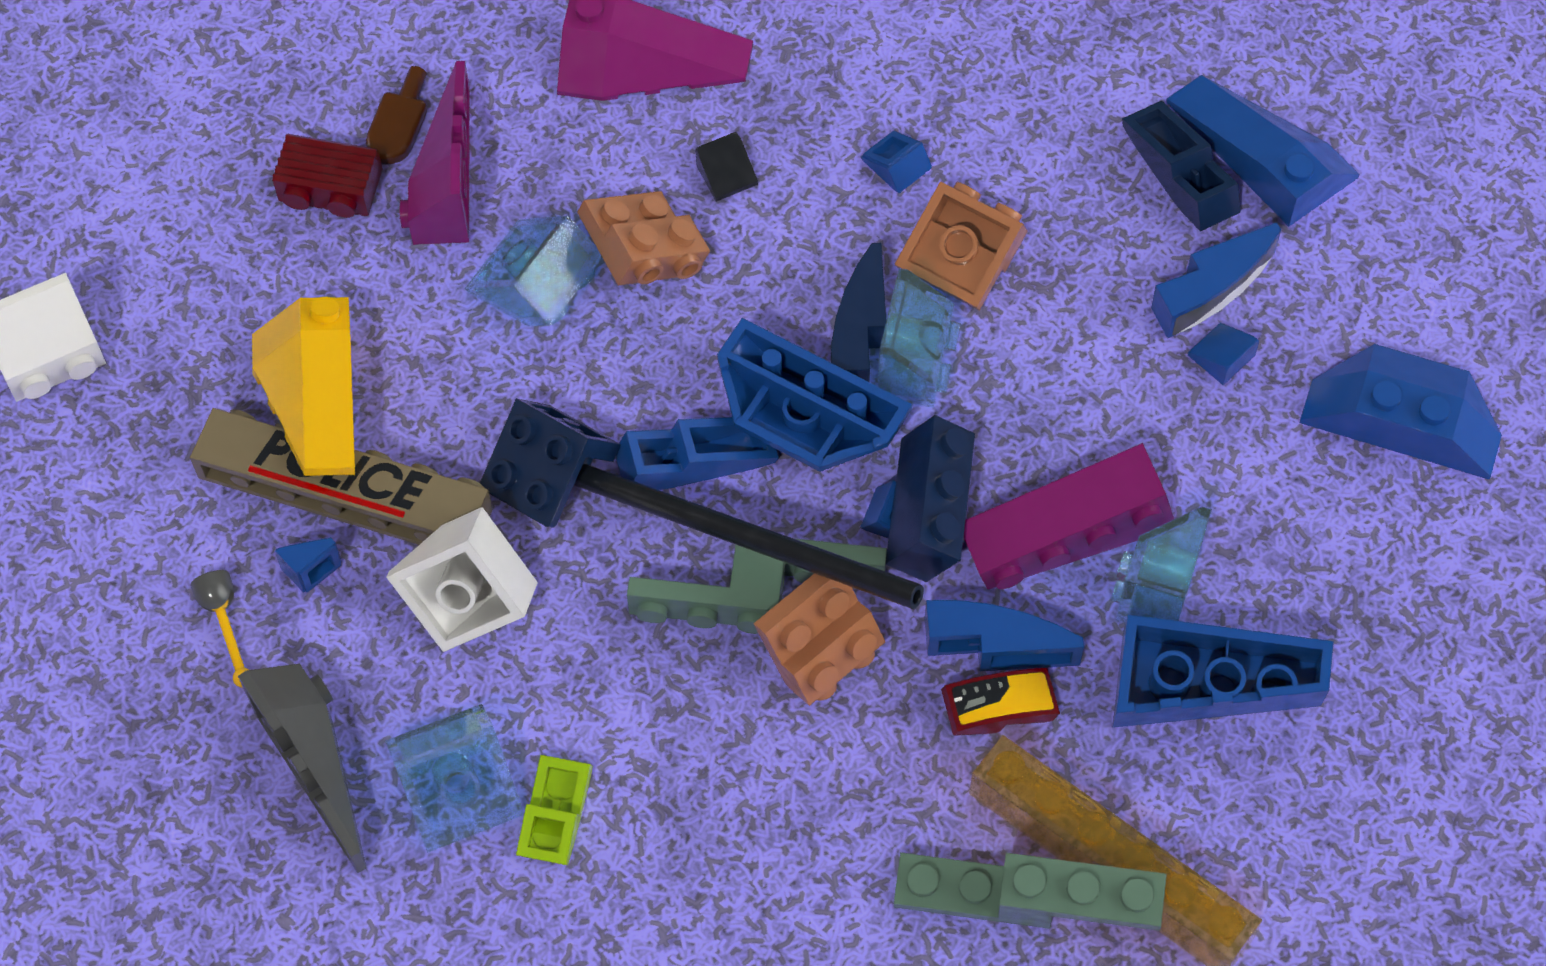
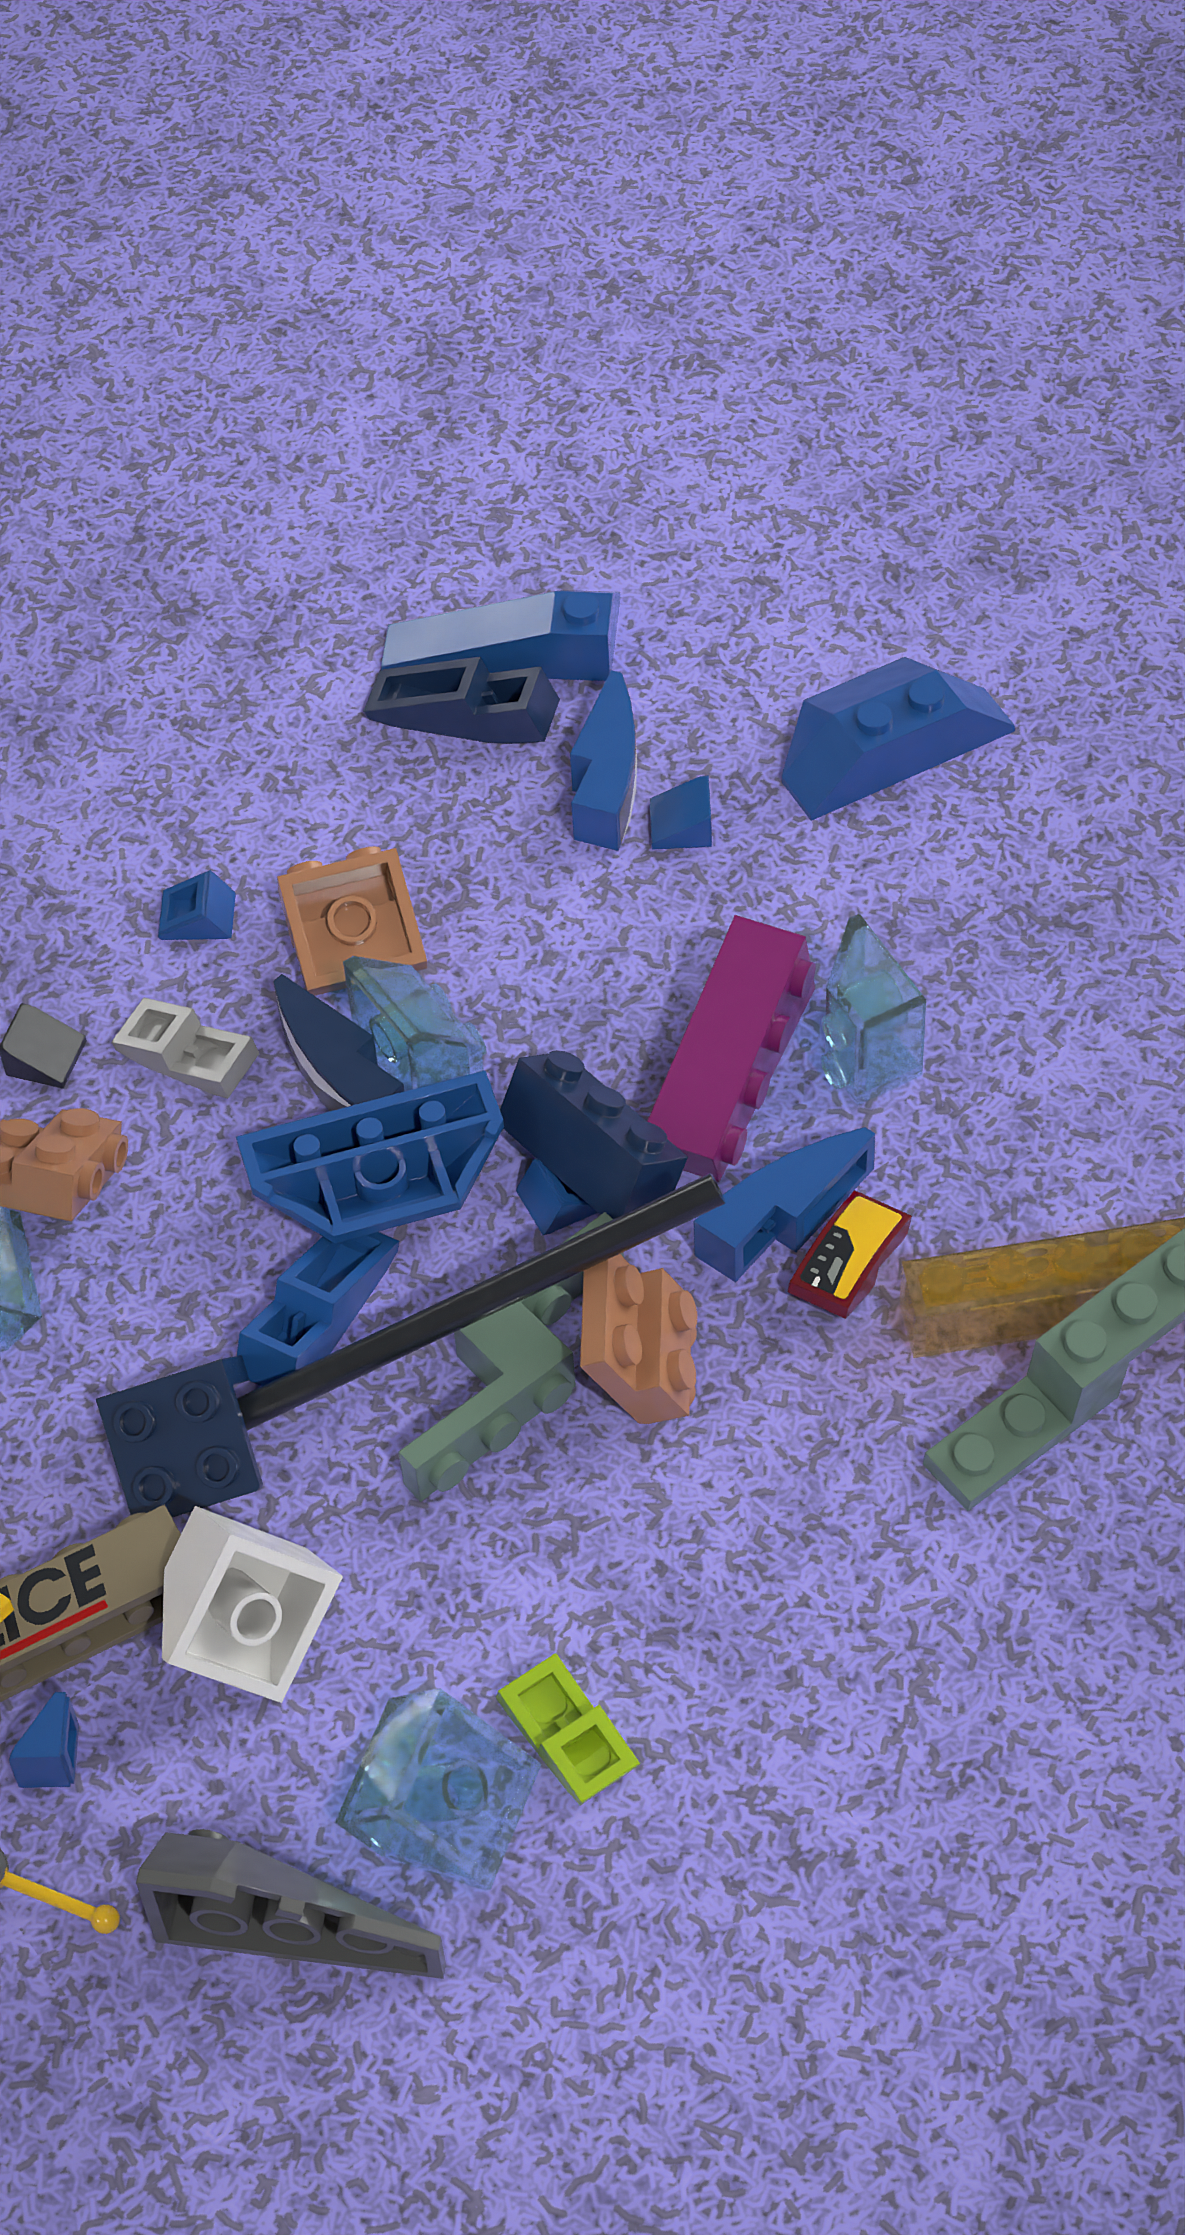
camera: 45 degrees left, 10 degrees down
(799, 237) = (178, 1046): none -> light grey slope
(1214, 671) = (991, 1064): blue wedge -> none

